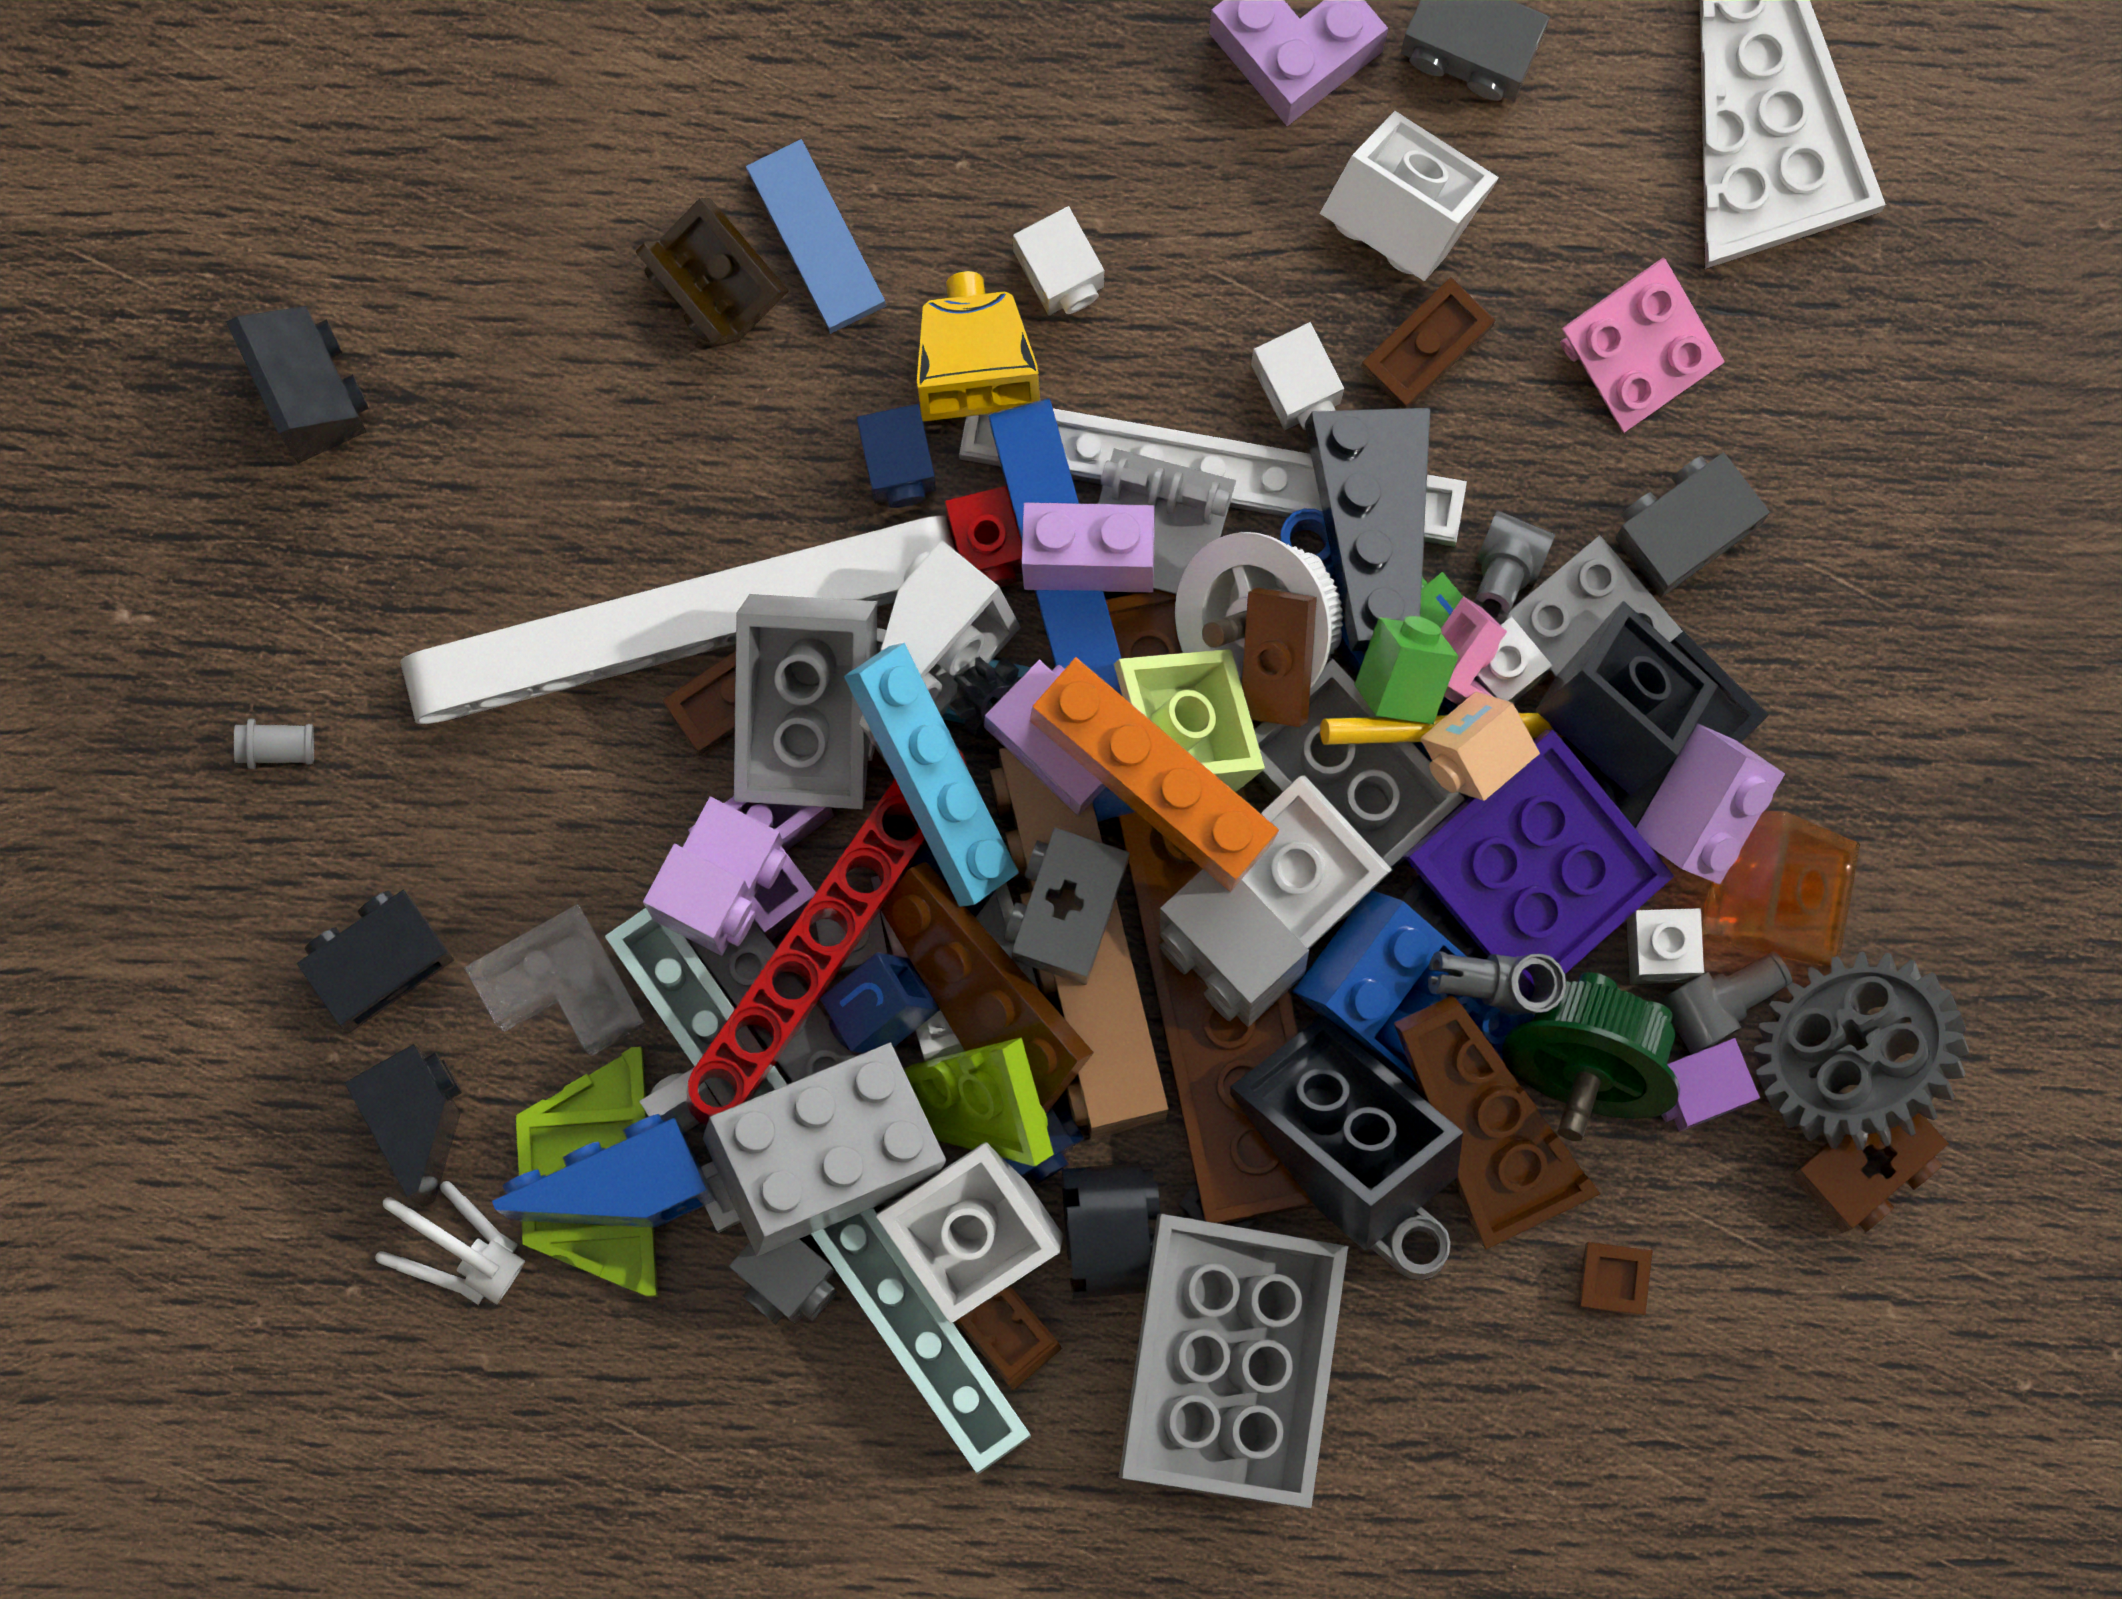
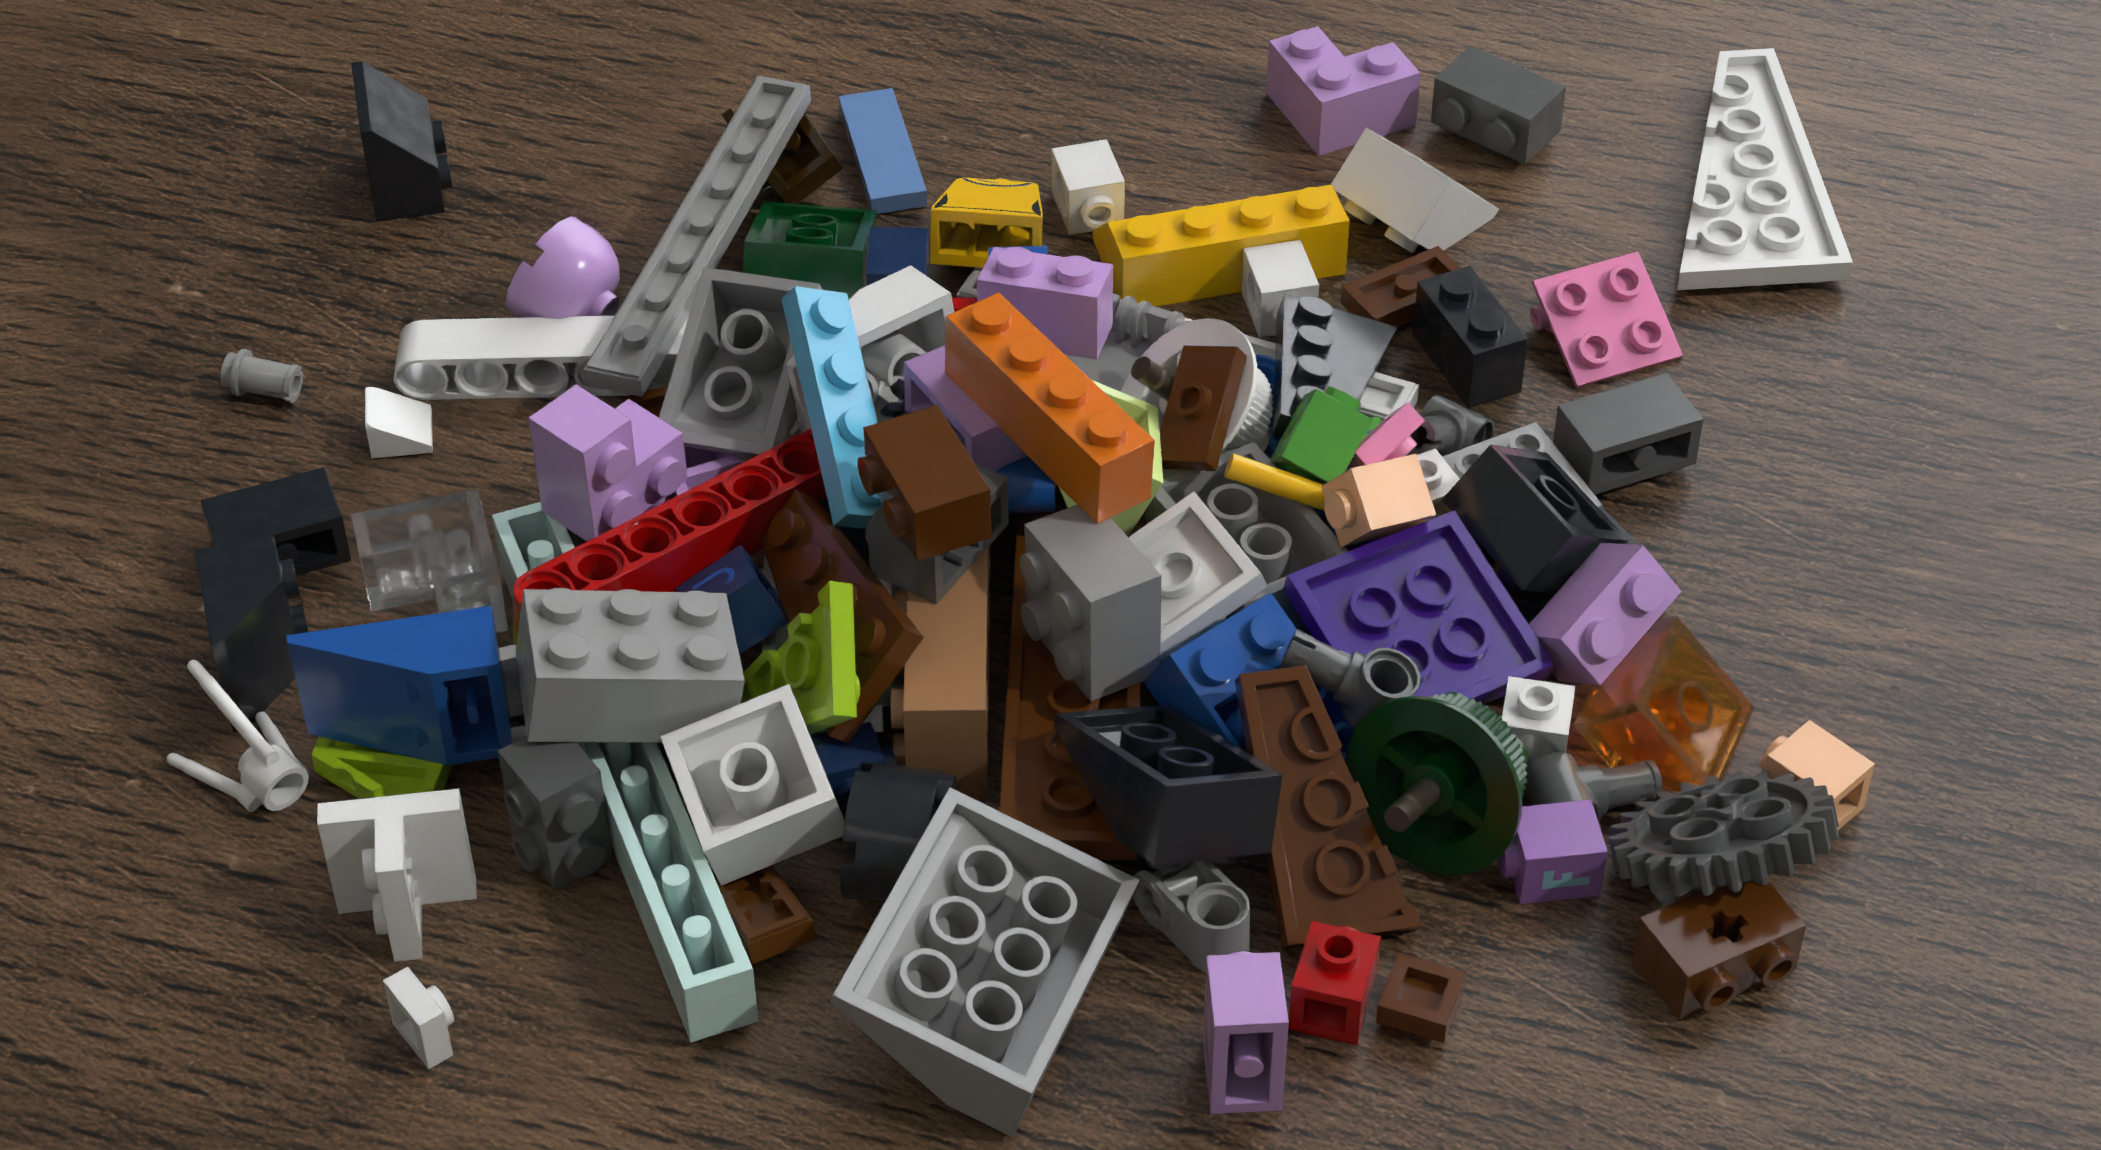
camera: 15 degrees right, 35 degrees down
(440, 775) = (397, 424): none -> white slope
(559, 559) = (570, 278): none -> lavender cylinder
(658, 1365) = (396, 858): none -> white bracket
(677, 458) = (697, 237): none -> light grey tile
(734, 1515) = (420, 1016): none -> white plate
(791, 437) = (811, 245): none -> dark green slope
(1060, 907) = (925, 483): none -> reddish brown brick
(1215, 308) = (1201, 248): none -> yellow slope
(1475, 1380) = (1245, 1032): none -> lavender brick
(1508, 410) = (1469, 336): none -> black brick
(1537, 1282) = (1334, 982): none -> red brick
(1932, 937) = (1828, 761): none -> light nougat brick

